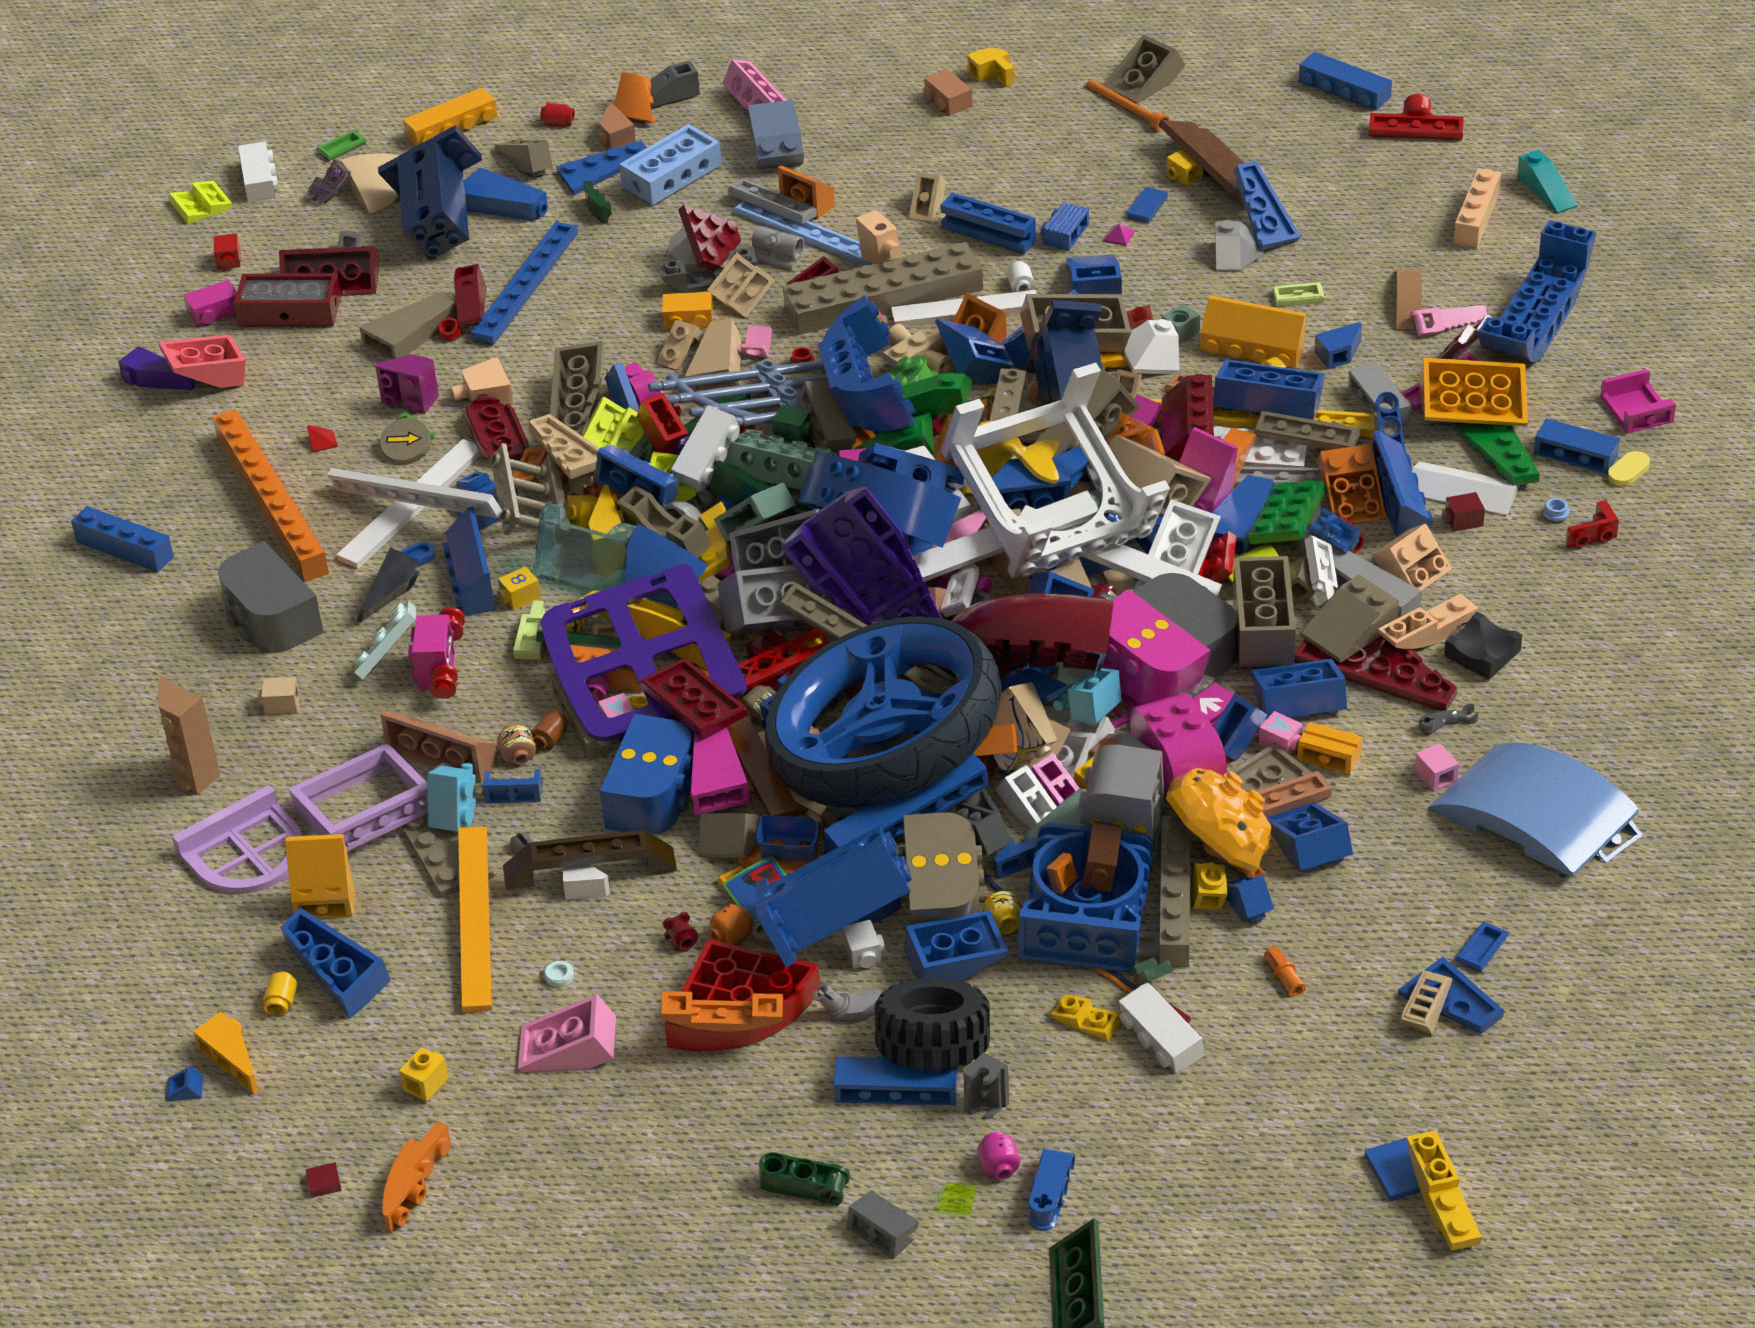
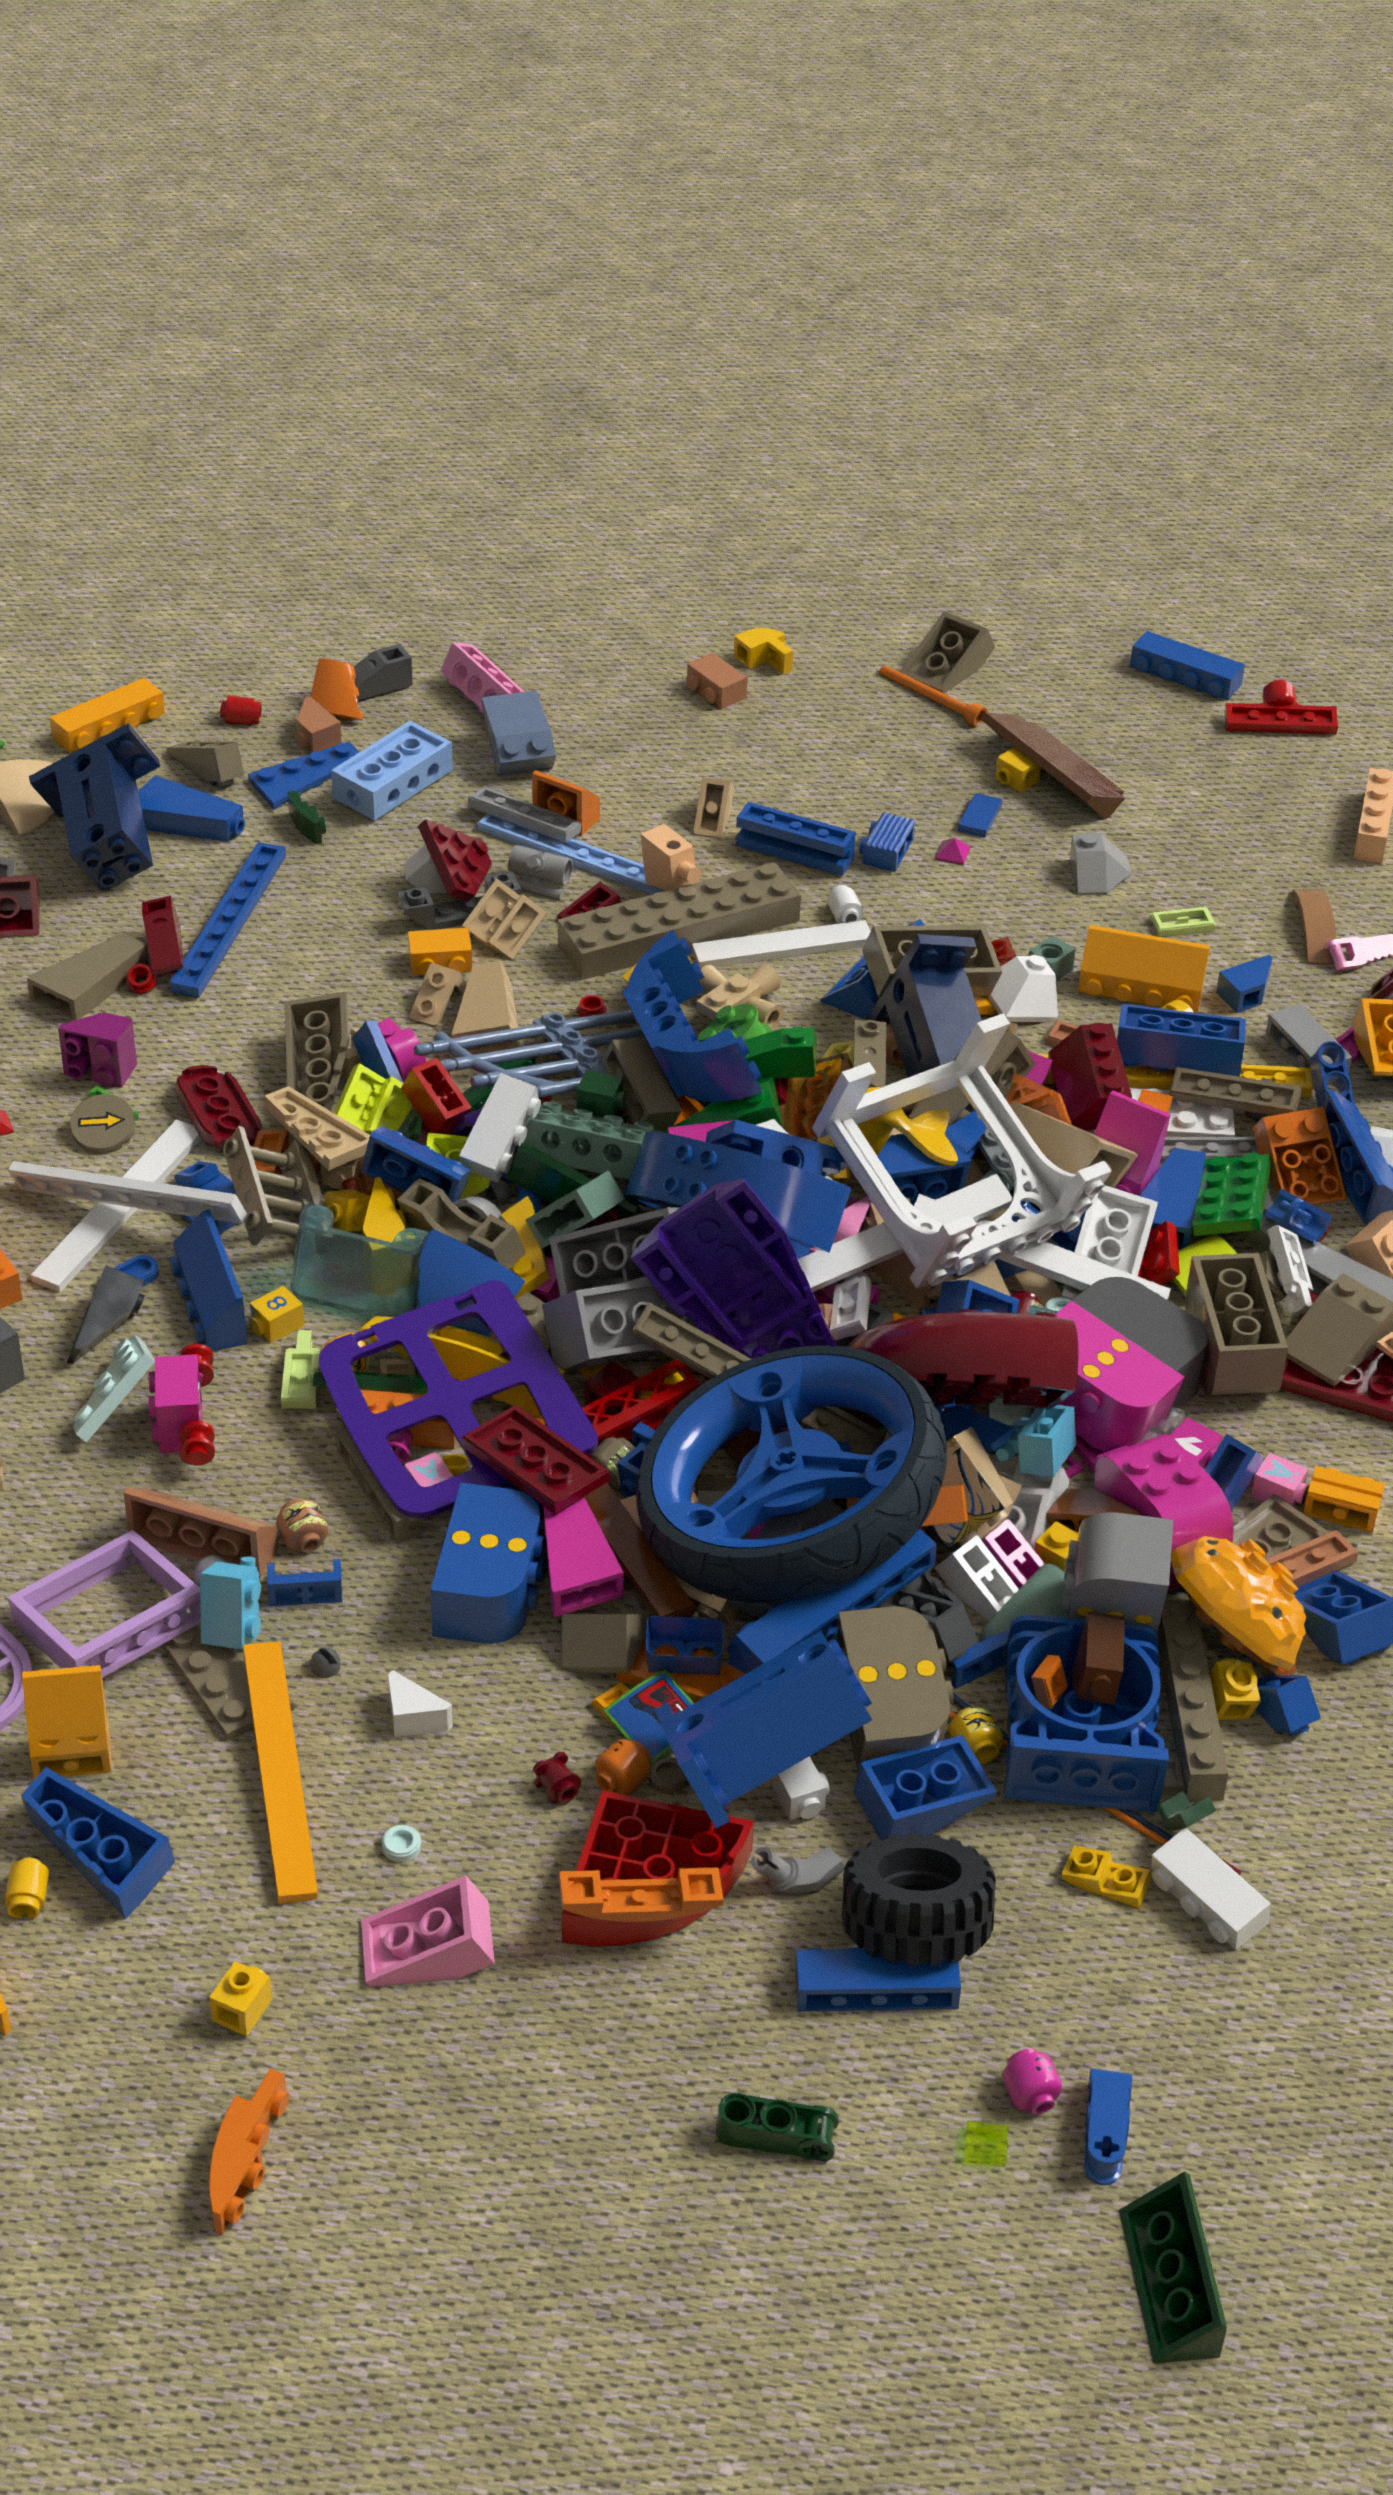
camera: 10 degrees left, 0 degrees up
(323, 1180) = (118, 2159): dark red tile -> none
(484, 381) = (193, 1045): light nougat torso -> none
(549, 730) = (343, 1504): dark orange brick -> none
(585, 851) = (419, 1671): dark brown slope -> none
(757, 342) = (533, 989): bright pink bracket -> none
(881, 1224) = (893, 2188): dark grey hinge -> none
(974, 351) = (810, 999): blue slope -> none
(983, 317) = (806, 964): orange slope -> none
(986, 1084) = (1002, 1982): dark grey hinge -> none
(1095, 274) = (936, 900): blue slope -> none
(1265, 211) = (1129, 823): blue wing -> none
(1284, 971) = (1348, 1802): orange axle -> none
(1300, 689) = (1294, 1421): blue slope -> none

